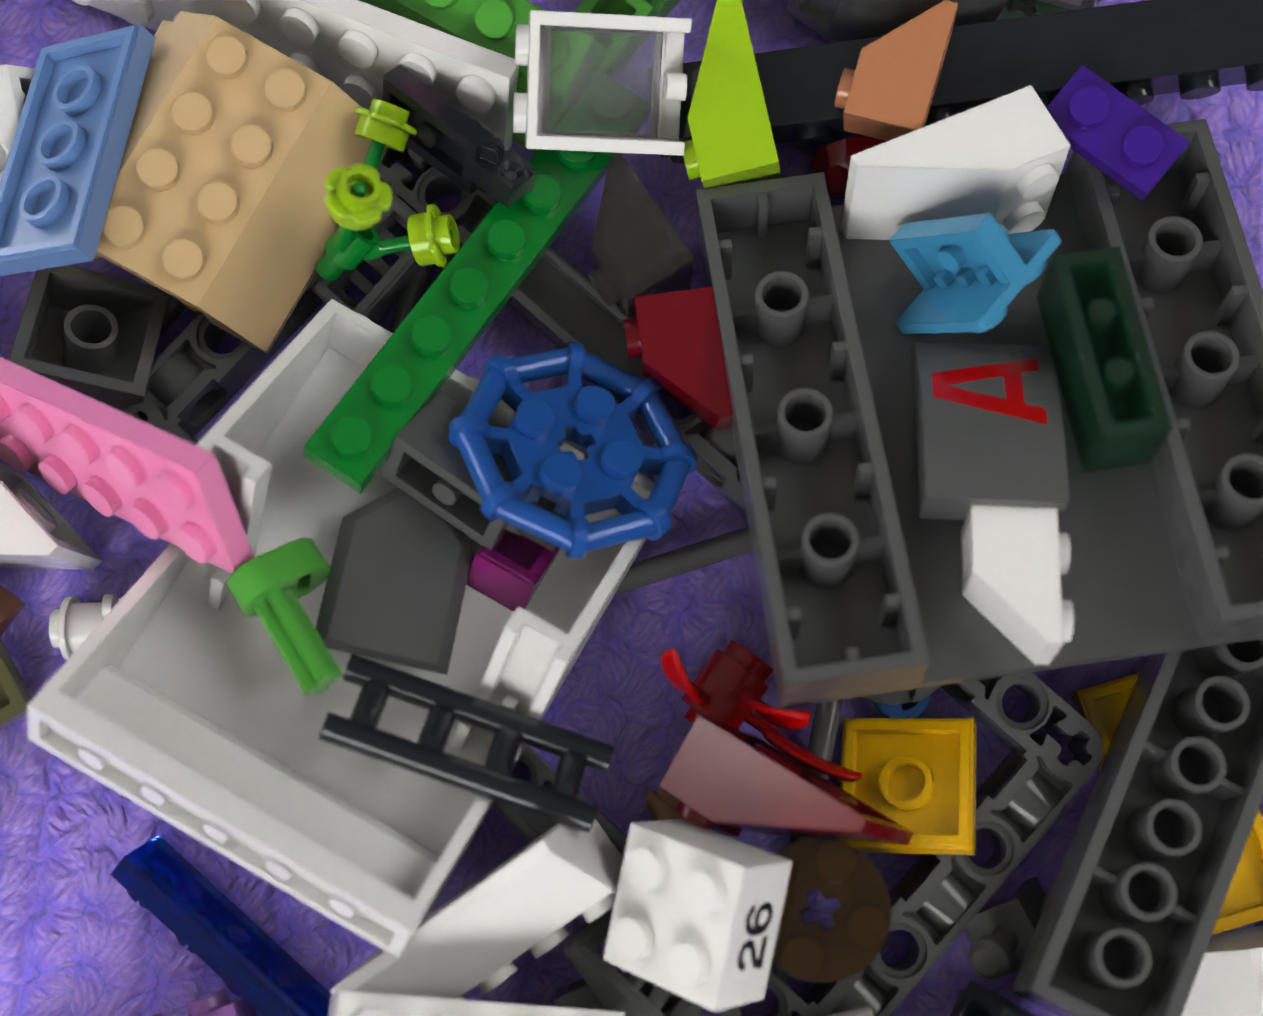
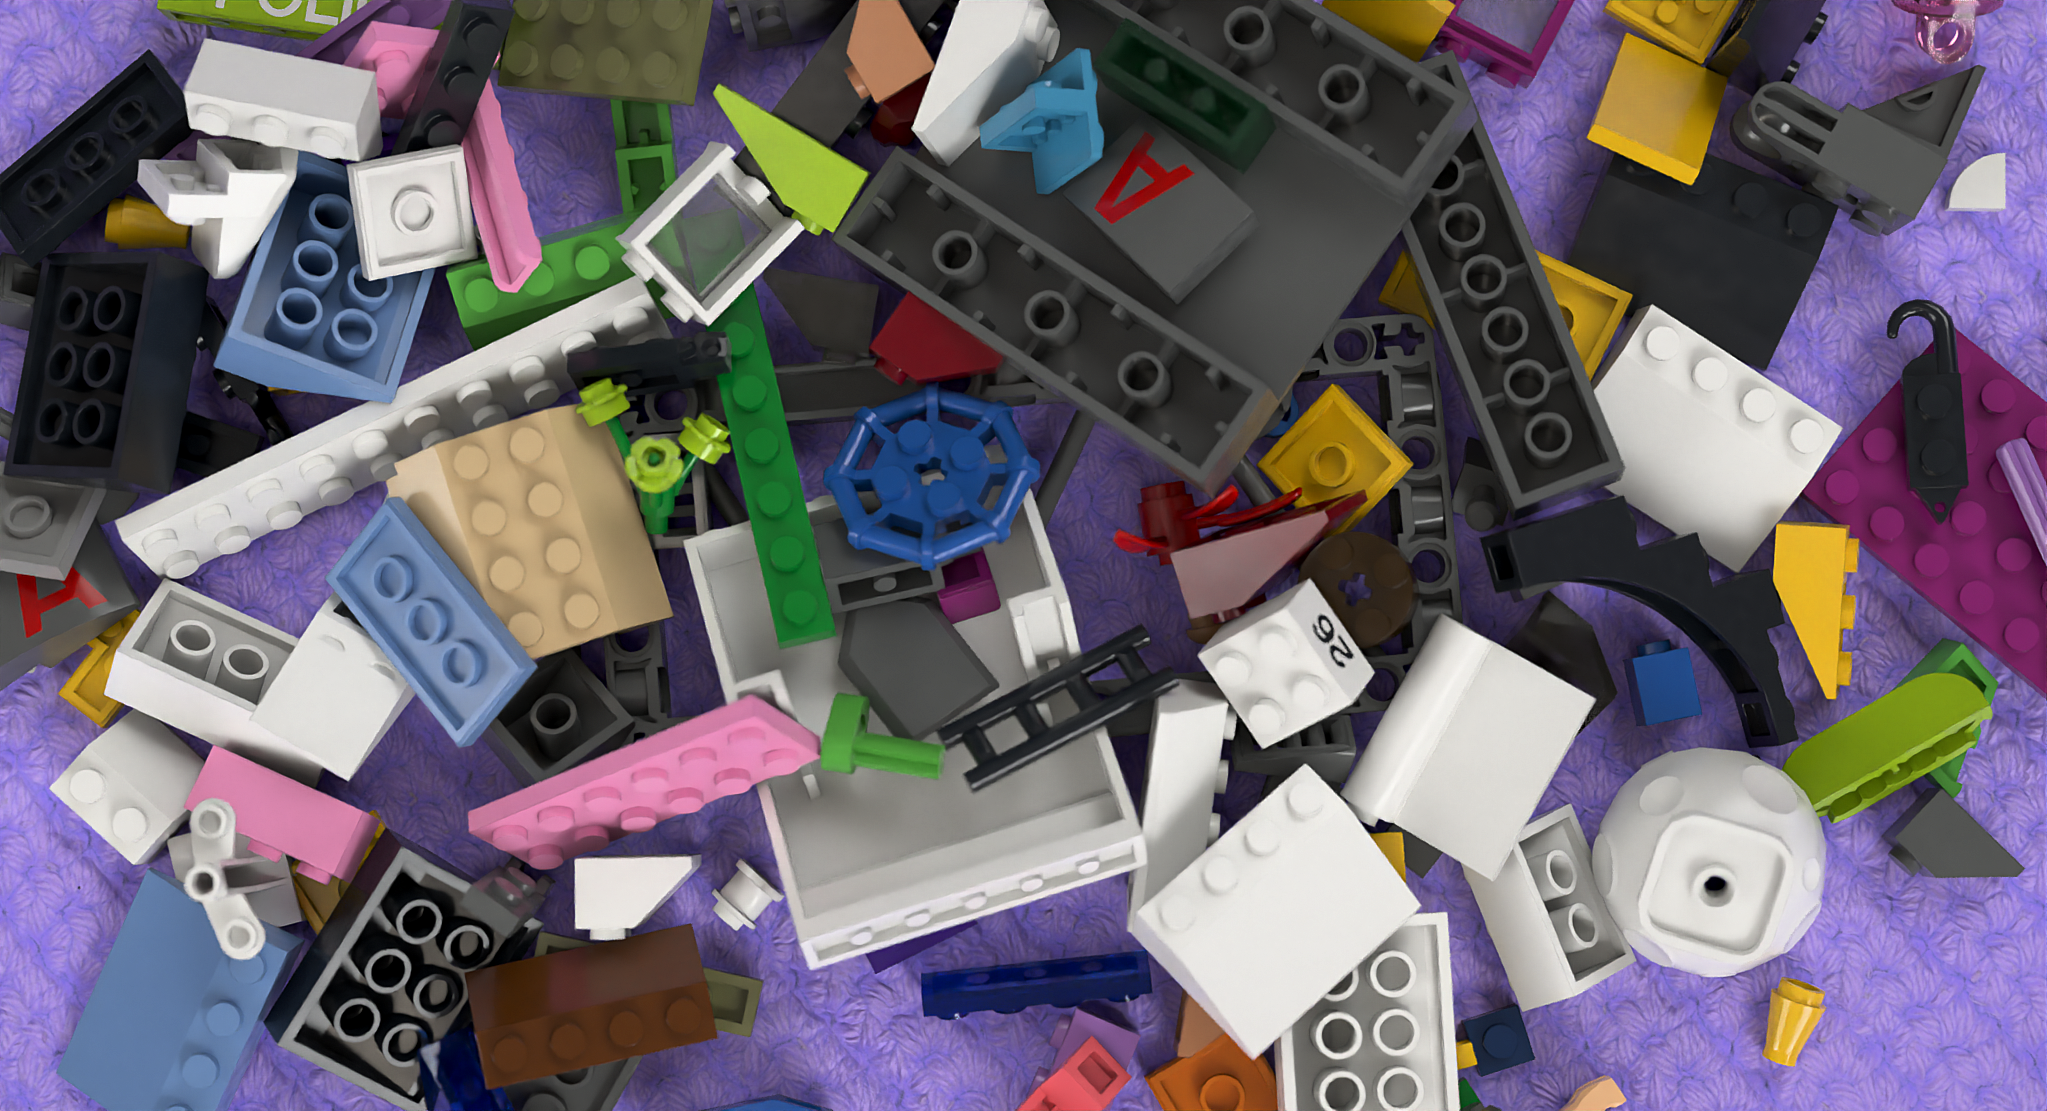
camera: 50 degrees left, 5 degrees up
(1014, 575) = (1264, 283): white slope -> none

